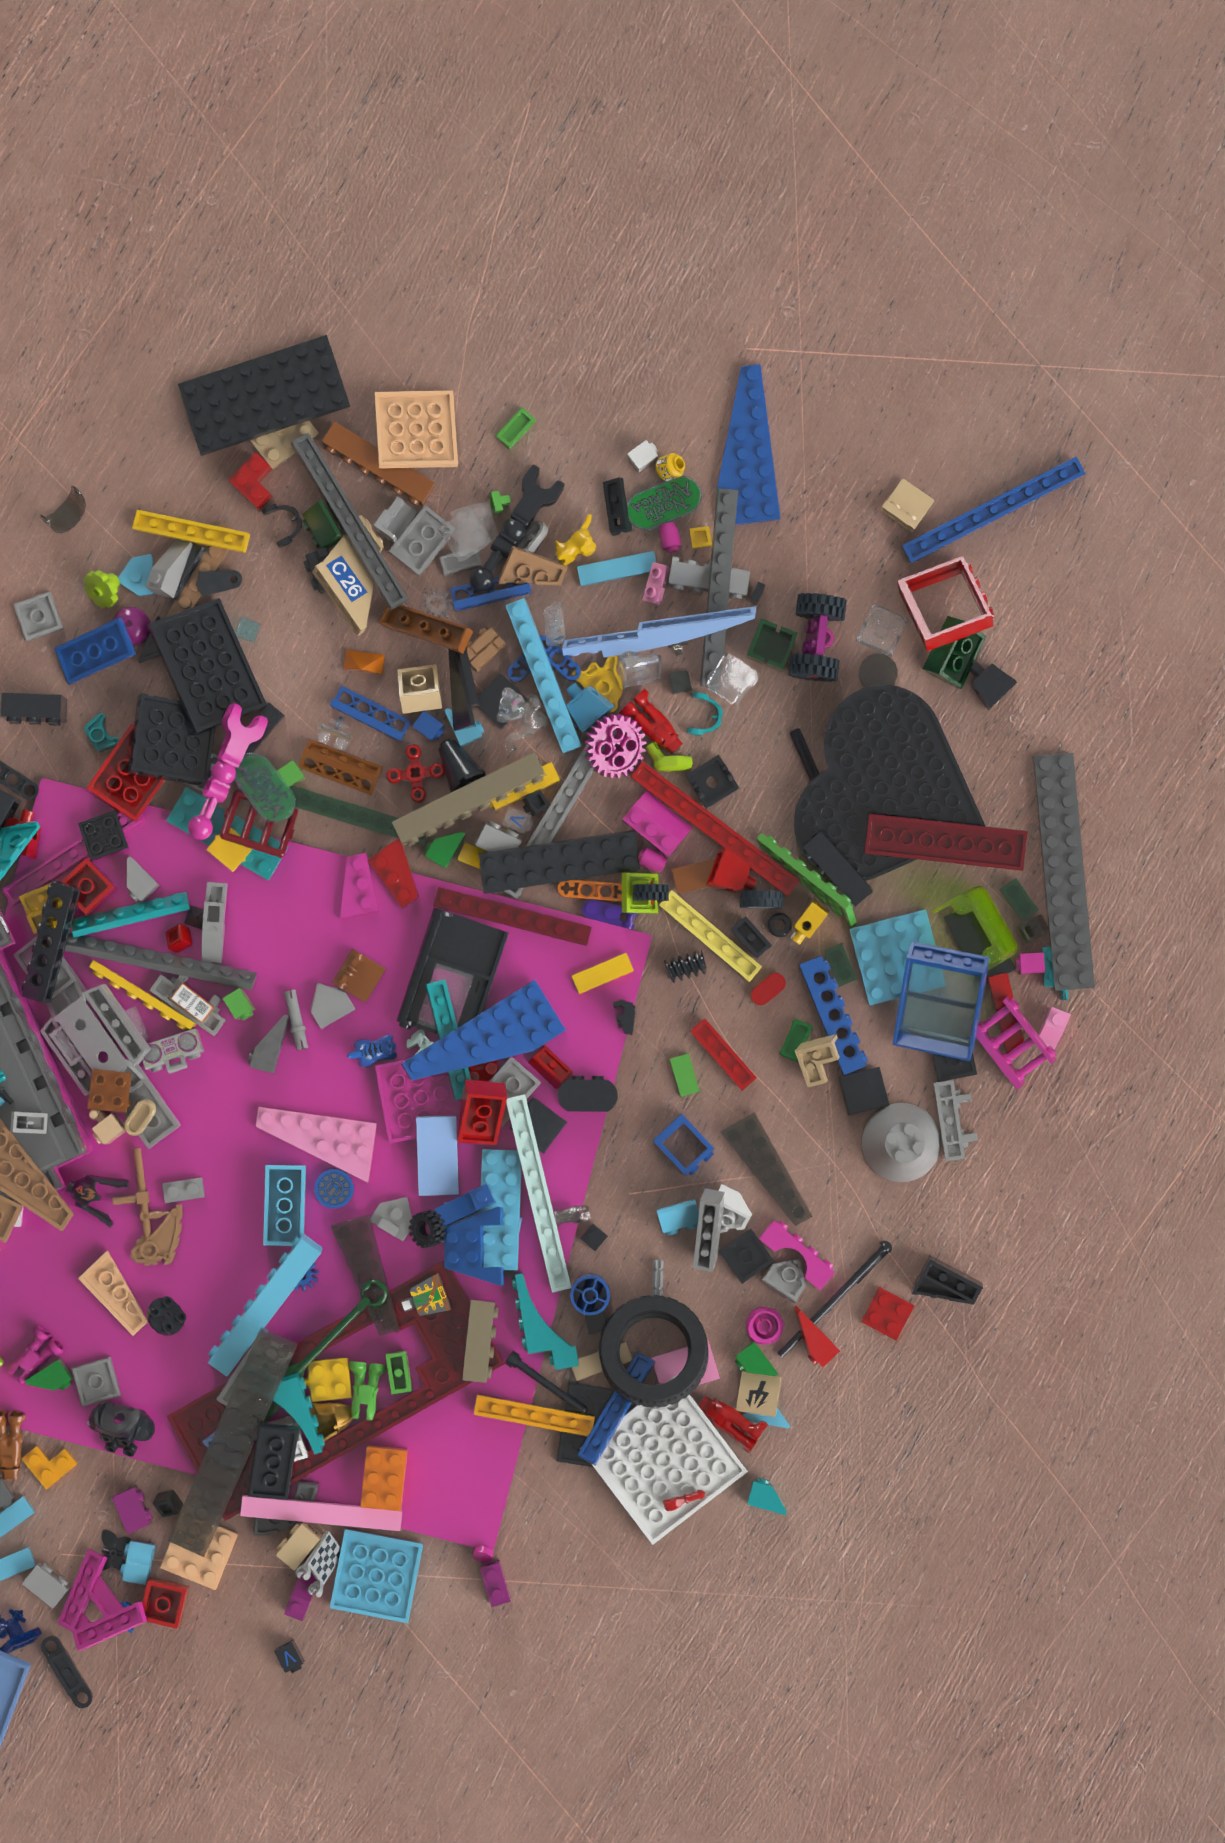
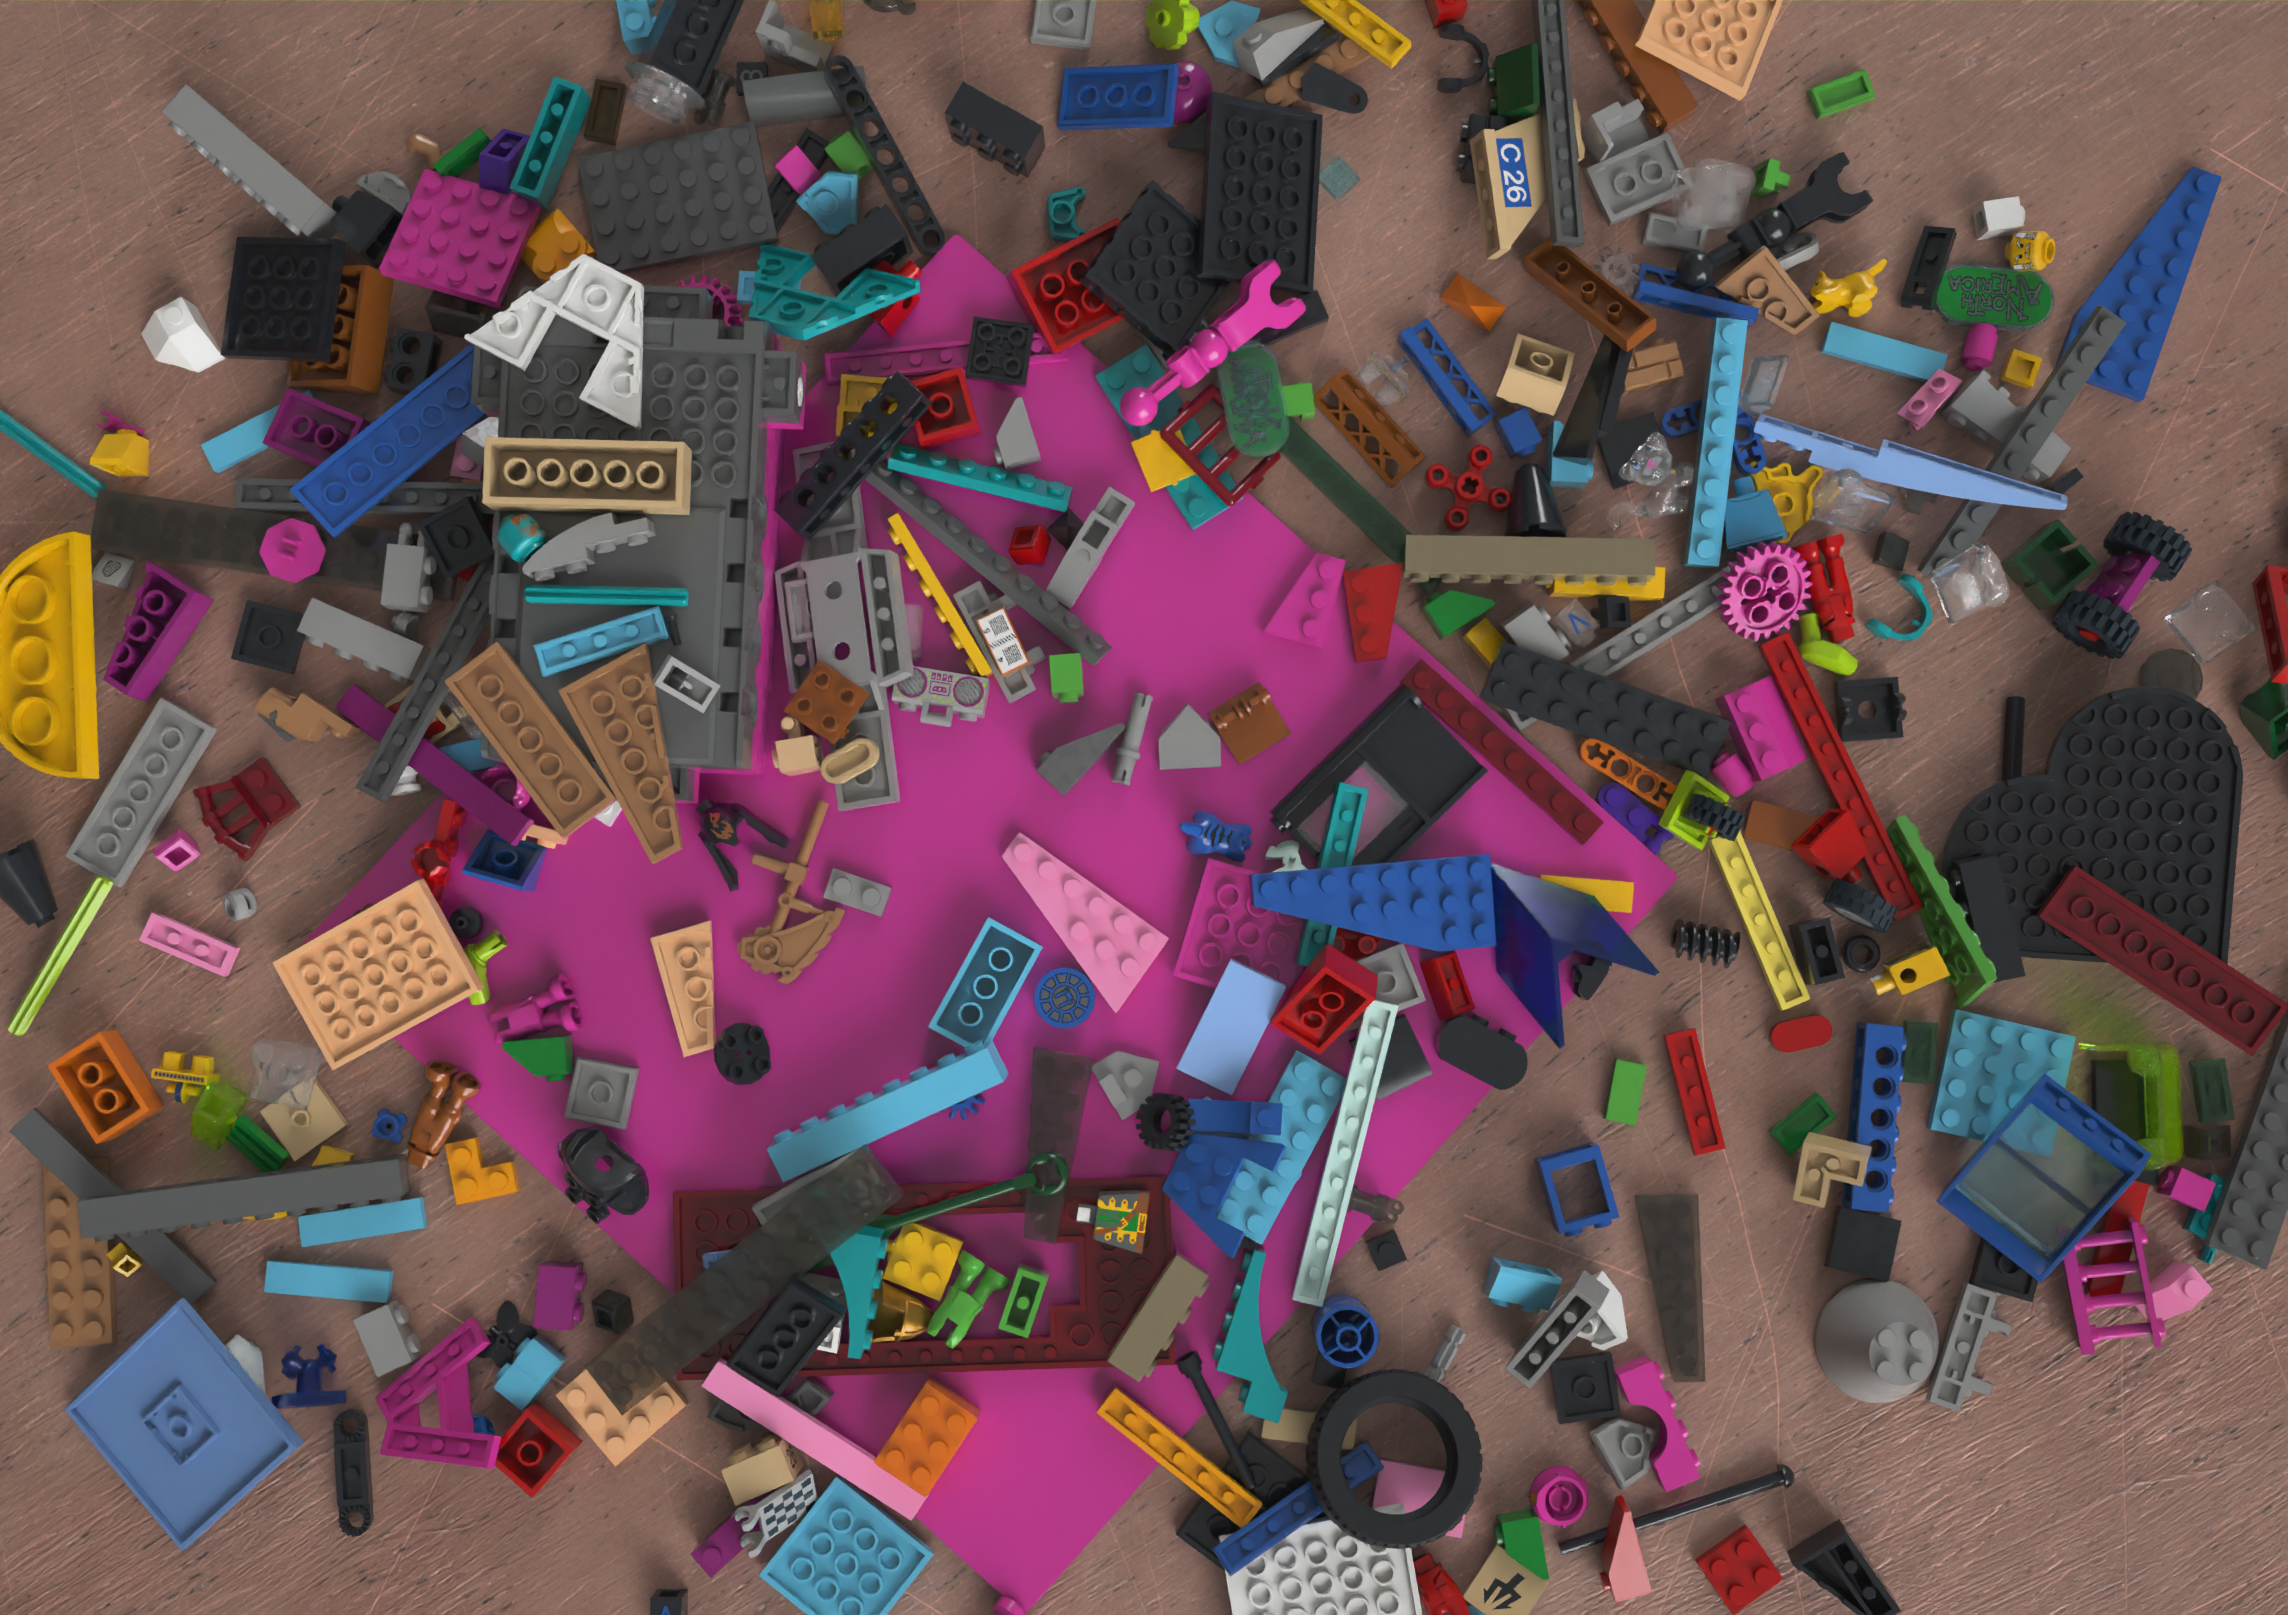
camera: 25 degrees right, 0 degrees up
(583, 1005) = (1541, 926): none -> clear blue windscreen

